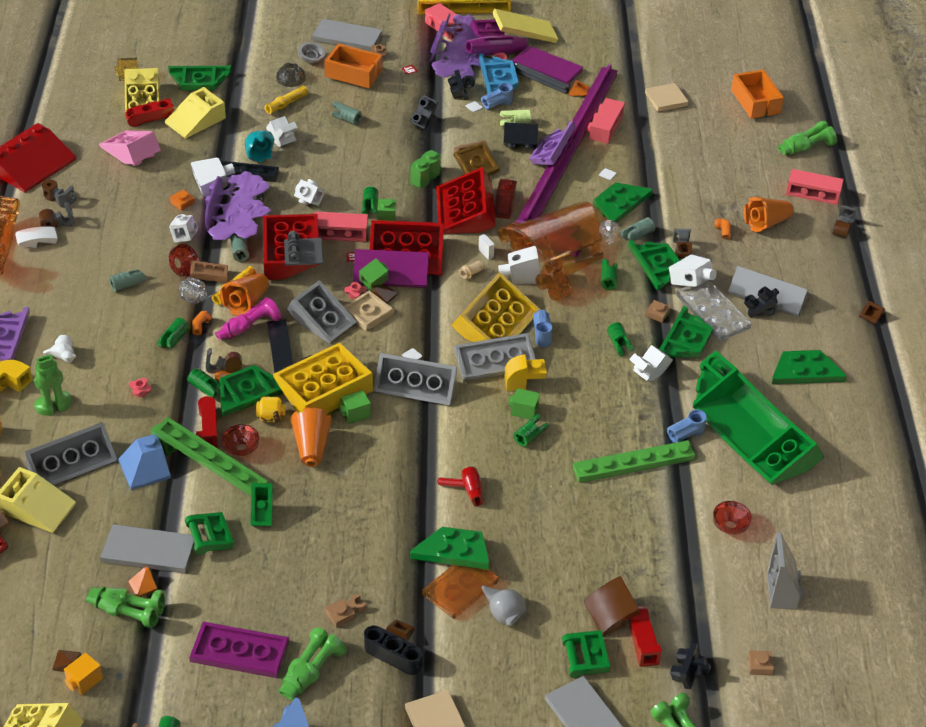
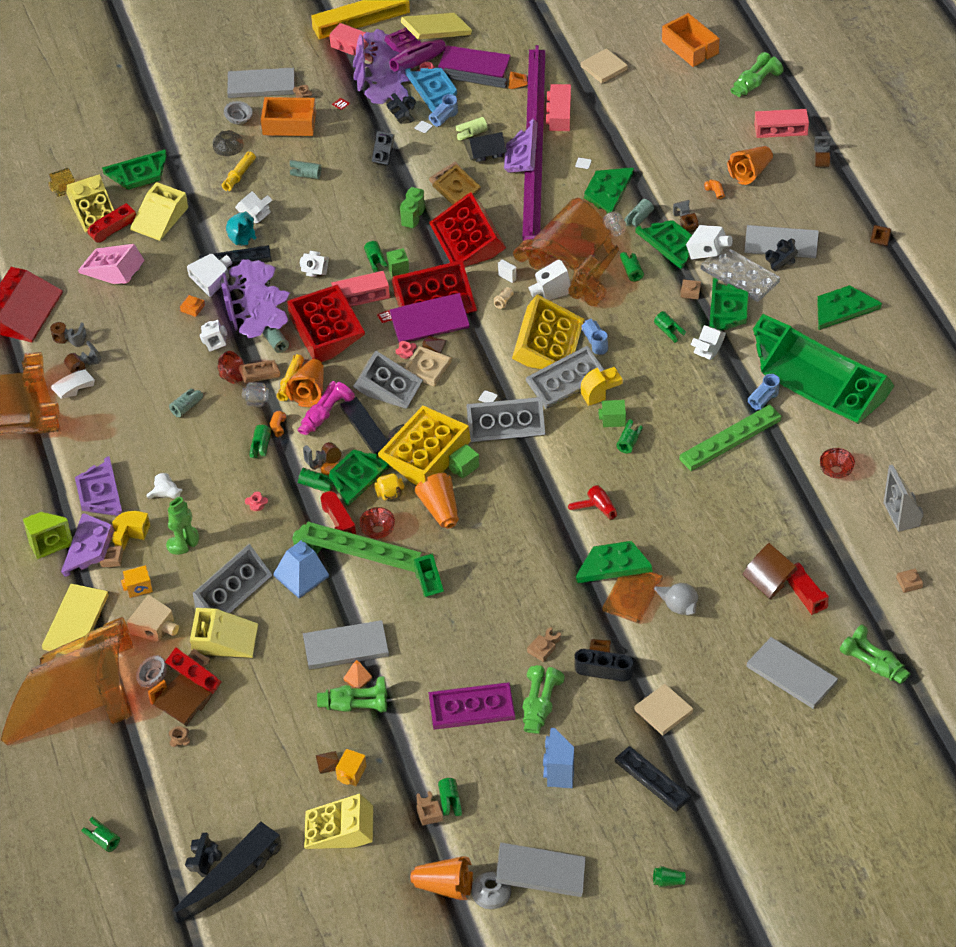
camera: 15 degrees left, 5 degrees up
(216, 531) = (397, 610): green plate -> none
(302, 250) = (345, 326): dark grey hinge -> none
(374, 274) = (419, 329): bright green brick -> none
(505, 198) = (502, 216): clear red slope -> none
(593, 652) = (769, 613): green plate -> none
(693, 666) = (856, 600): black hips -> none

